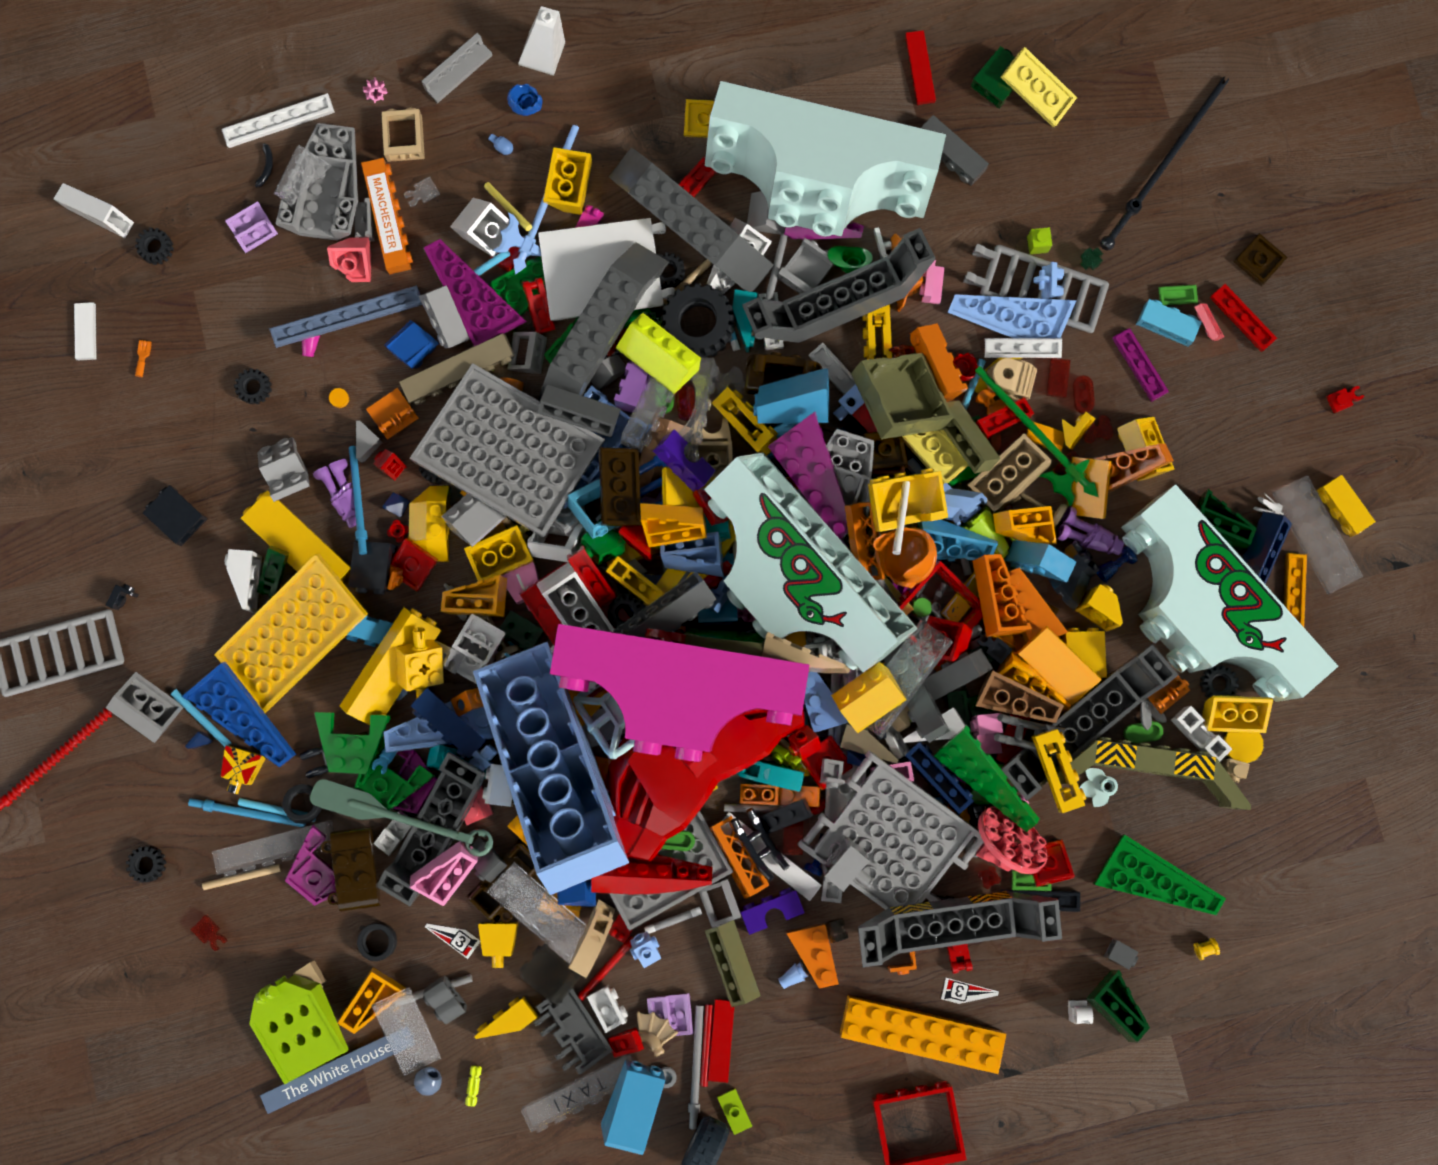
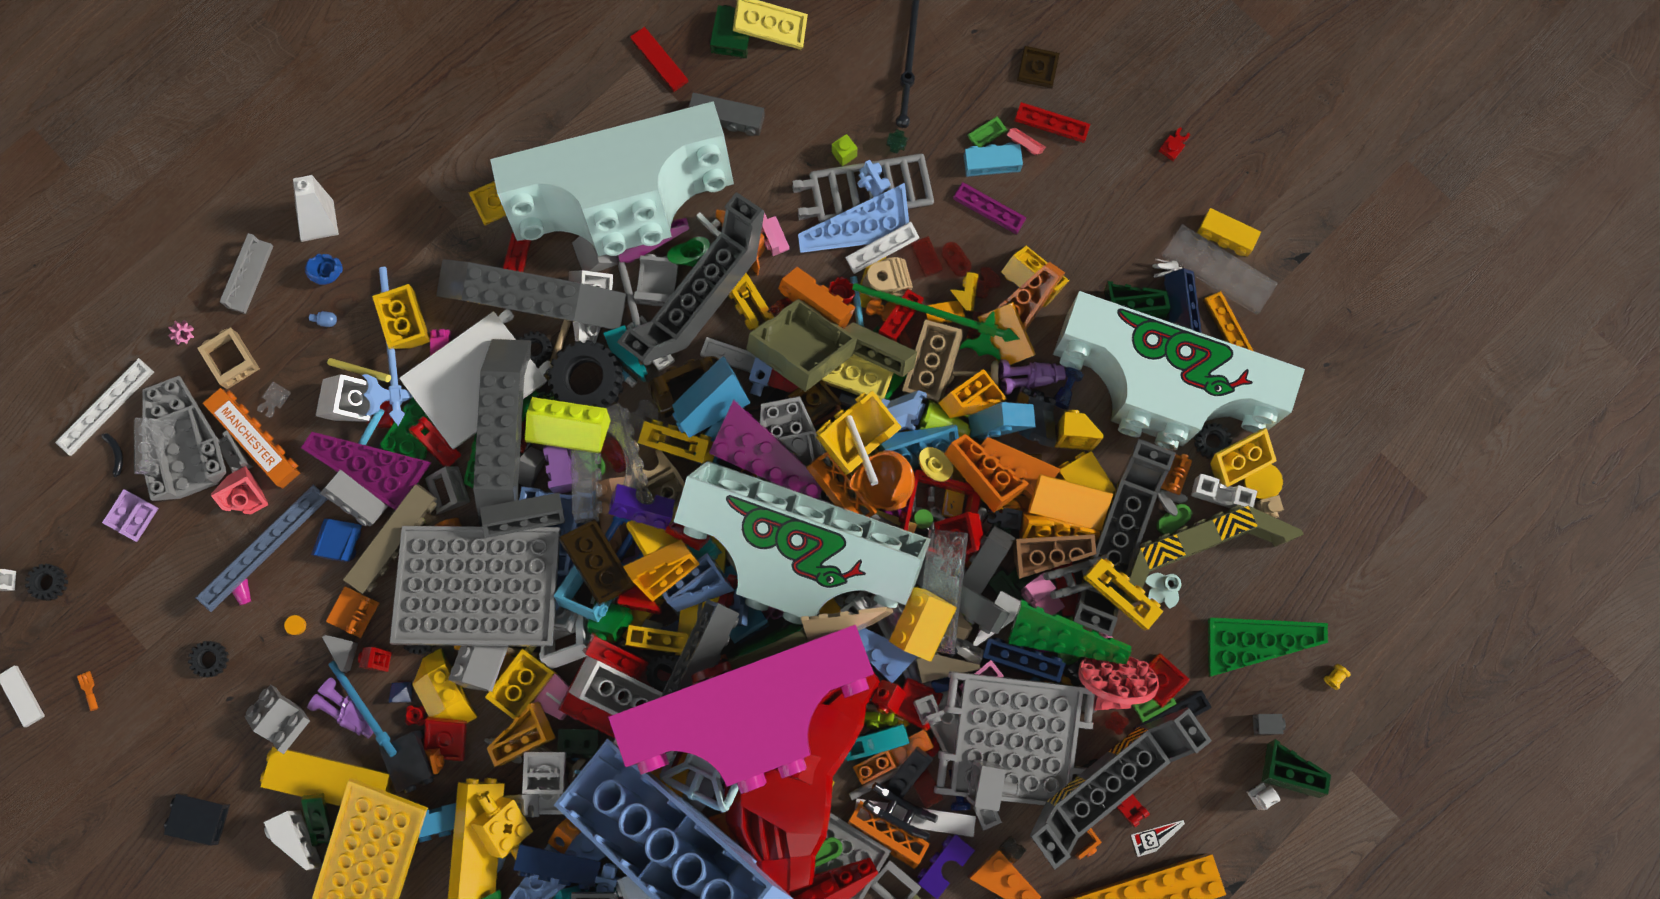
camera: 30 degrees left, 5 degrees down
(959, 566) = (935, 464): none -> light yellow dish

